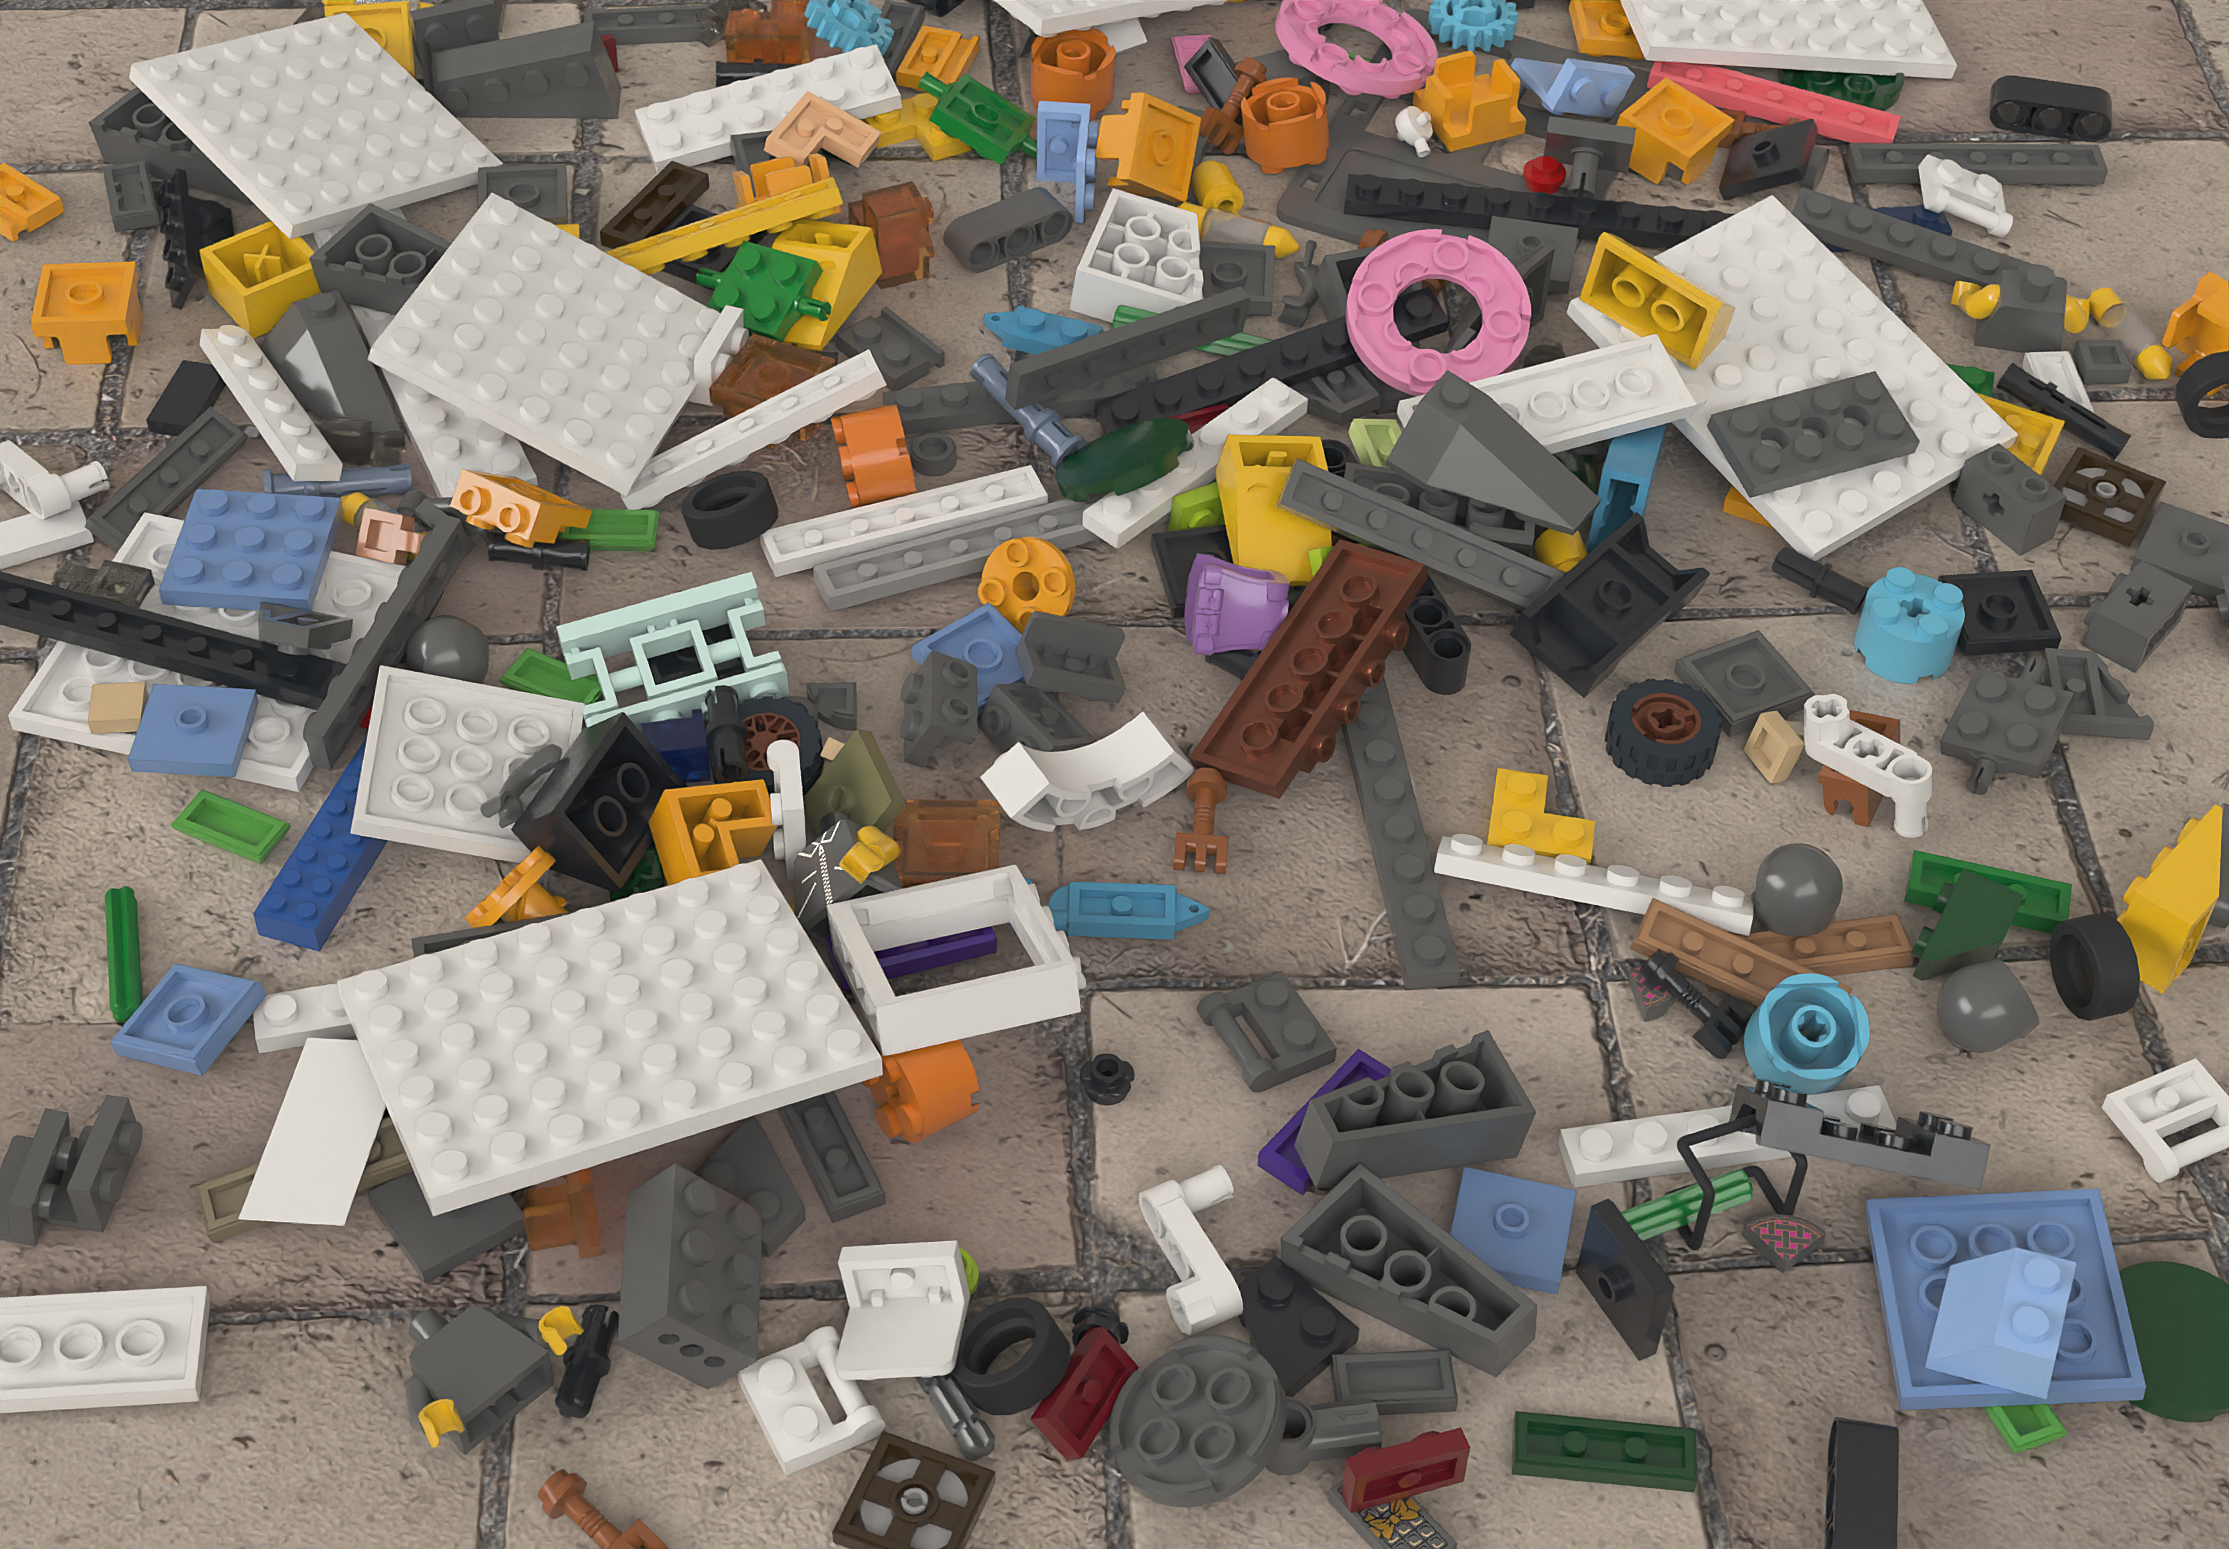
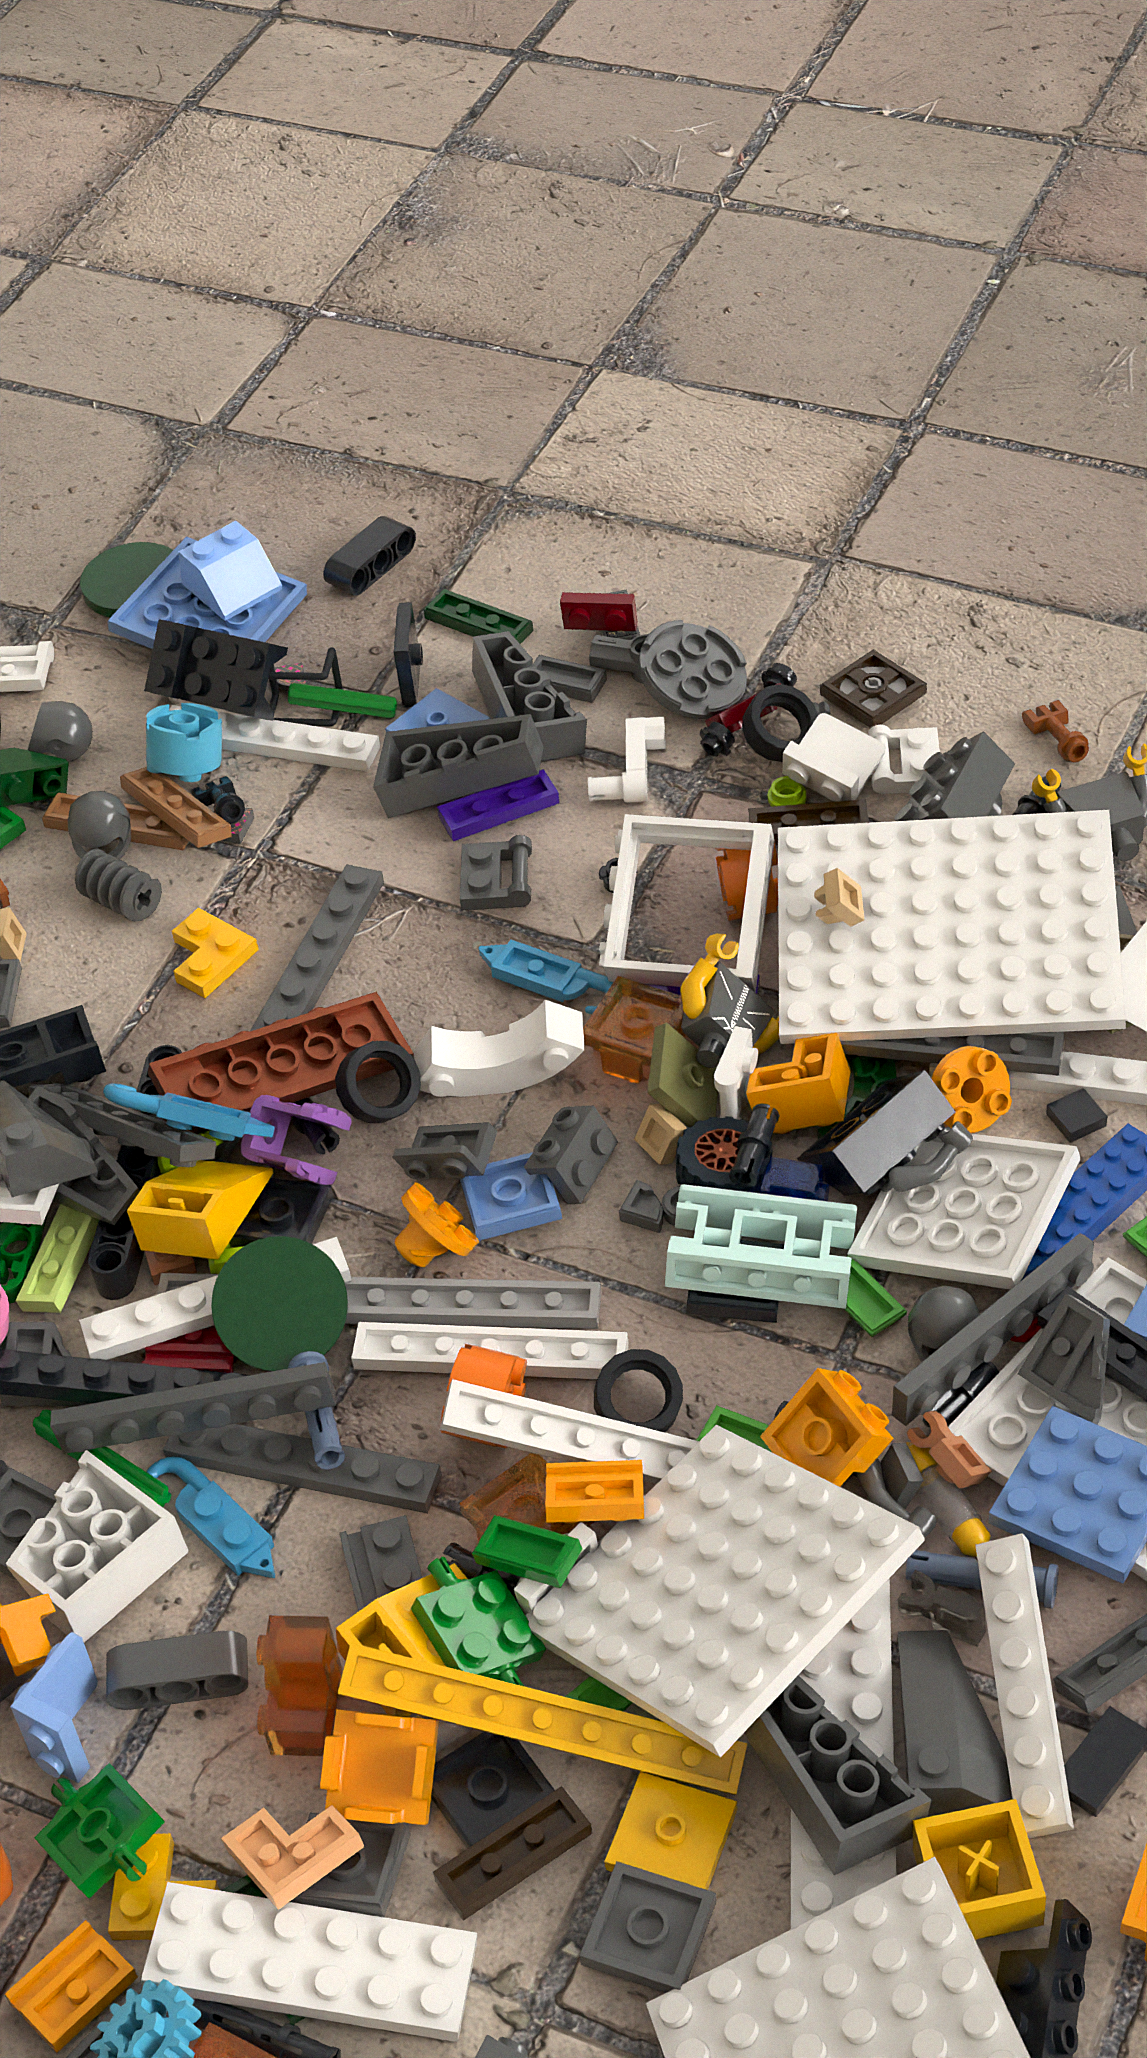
camera: 145 degrees left, 0 degrees up
(381, 944) = (1076, 1115): none -> black tile
(710, 380) = (594, 1491): none -> light orange plate
(741, 961) = (841, 899): none -> tan tile
(745, 326) = (527, 1551): none -> green tile
(925, 1214) = (810, 814): none -> dark brown plate
(933, 454) = (419, 1428): dark grey tile -> none
(1031, 718) = (511, 1112): dark grey bracket -> none
(1066, 1475) = (778, 674): none -> black plate
(1197, 697) = (405, 1068): none -> black tyre
(1206, 790) = (443, 1003): dark orange hinge -> none
(1292, 1325) = (606, 716): black wing -> none
(1337, 526) = (188, 1112): none -> dark azure plate
(1573, 879) = (215, 891): white plate -> none
(1663, 732) = (66, 974): black wheel -> none
(1709, 840) = (117, 885): none -> dark grey piece

